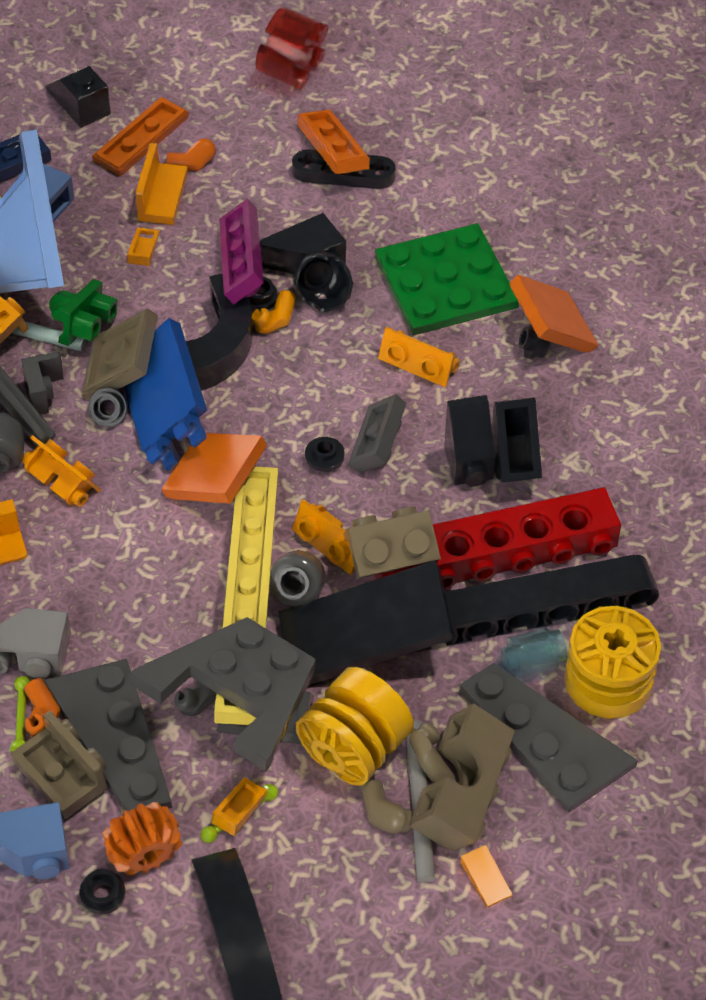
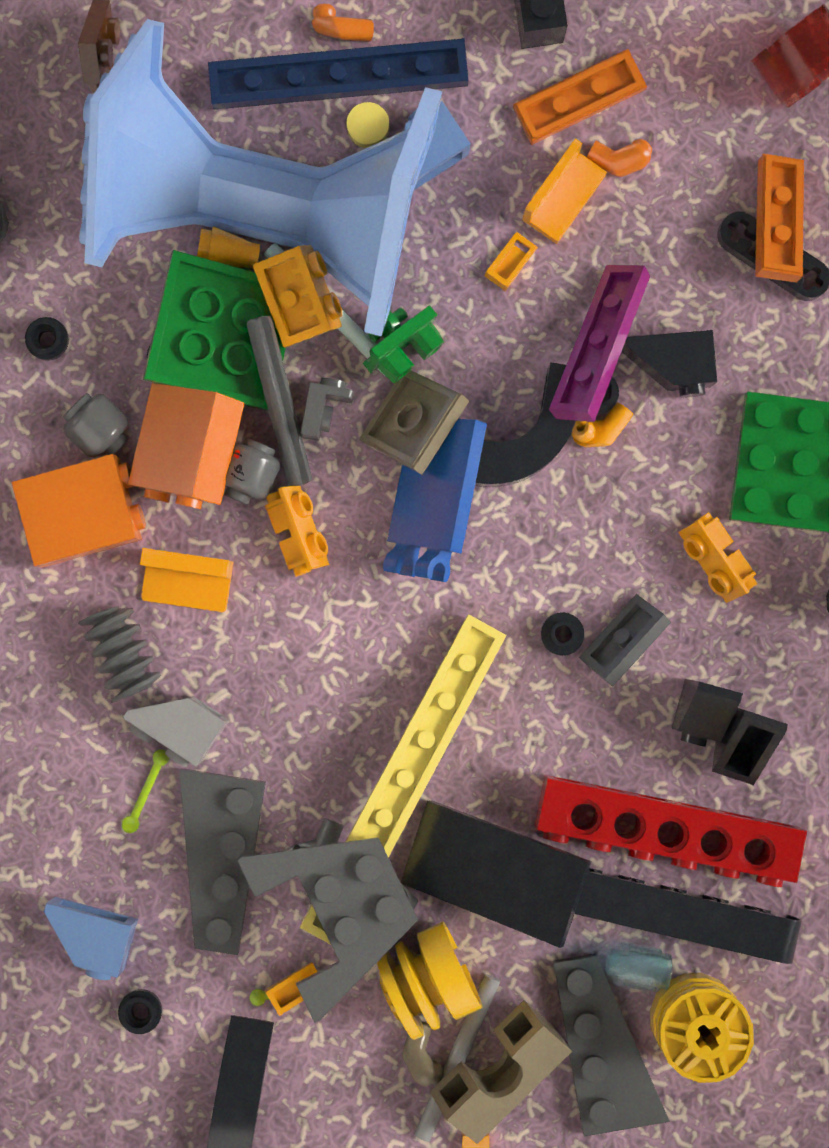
camera: 30 degrees right, 35 degrees up
(43, 702) = (166, 801): orange arm -> none
(61, 766) = (154, 875): dark tan bracket -> none
(97, 411) = (375, 472): black plate -> none
(142, 838) = (189, 994): orange gear -> none
(214, 468) = (445, 613): orange tile -> none
(284, 583) = (459, 782): dark grey head -> none
(323, 274) = (681, 415): black hair -> none
(324, 533) = (525, 757): light orange hinge -> none
(392, 543) = (562, 804): dark tan bracket -> none
(428, 757) = (482, 1029): dark tan arm -> none

